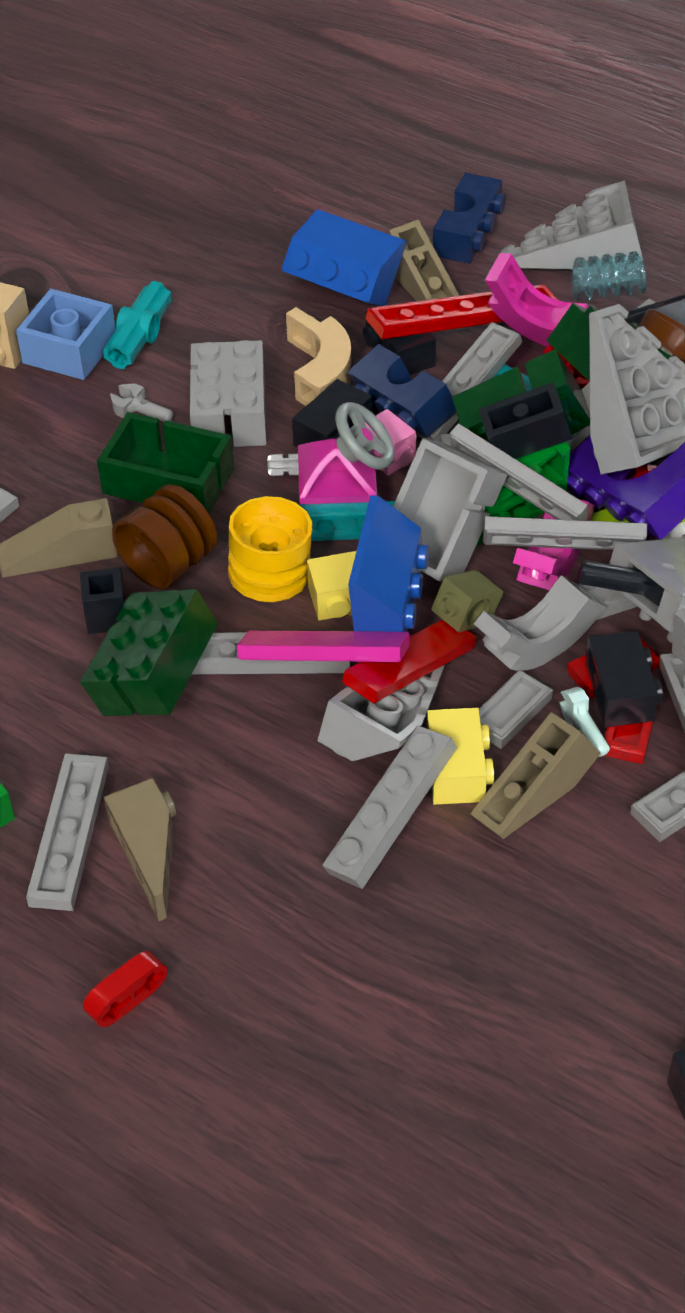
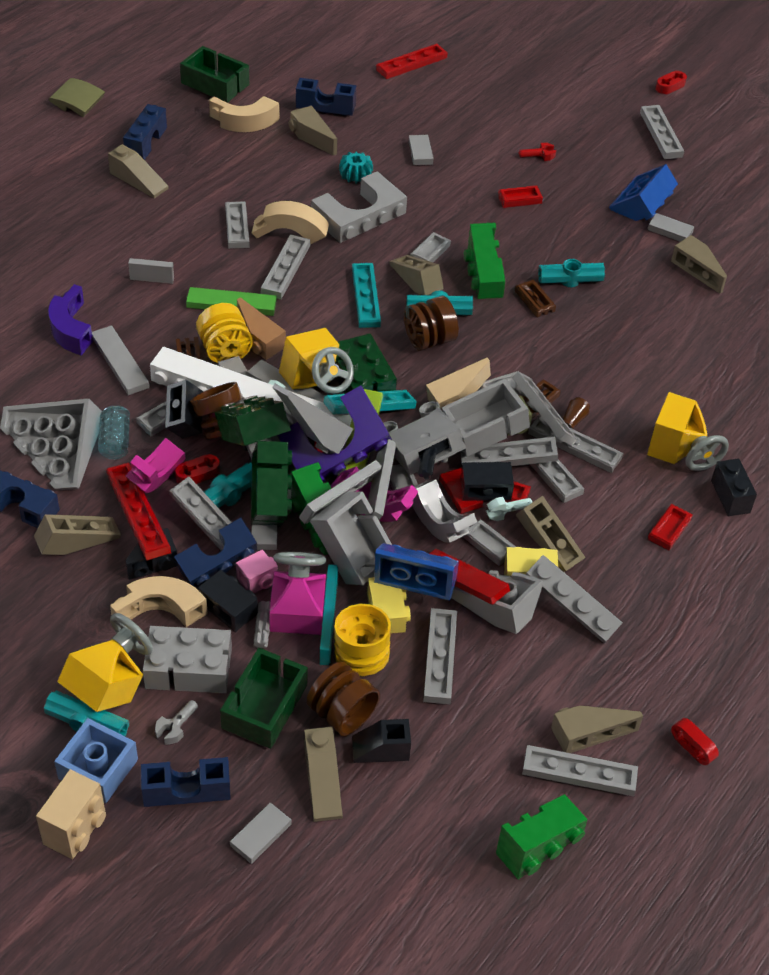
camera: 90 degrees left, 0 degrees up
(36, 411) = (168, 787): none -> dark blue arch
(149, 653) = (450, 711): dark green piece -> none
(188, 310) = (104, 672): none -> yellow piece
(324, 646) = (459, 613): dark pink tile -> none
(345, 257) = (60, 570): blue slope -> none
(464, 598) = (414, 539): olive brick -> none
(526, 422) = (308, 472): black brick -> none
(608, 974) = (670, 527): none -> red tile

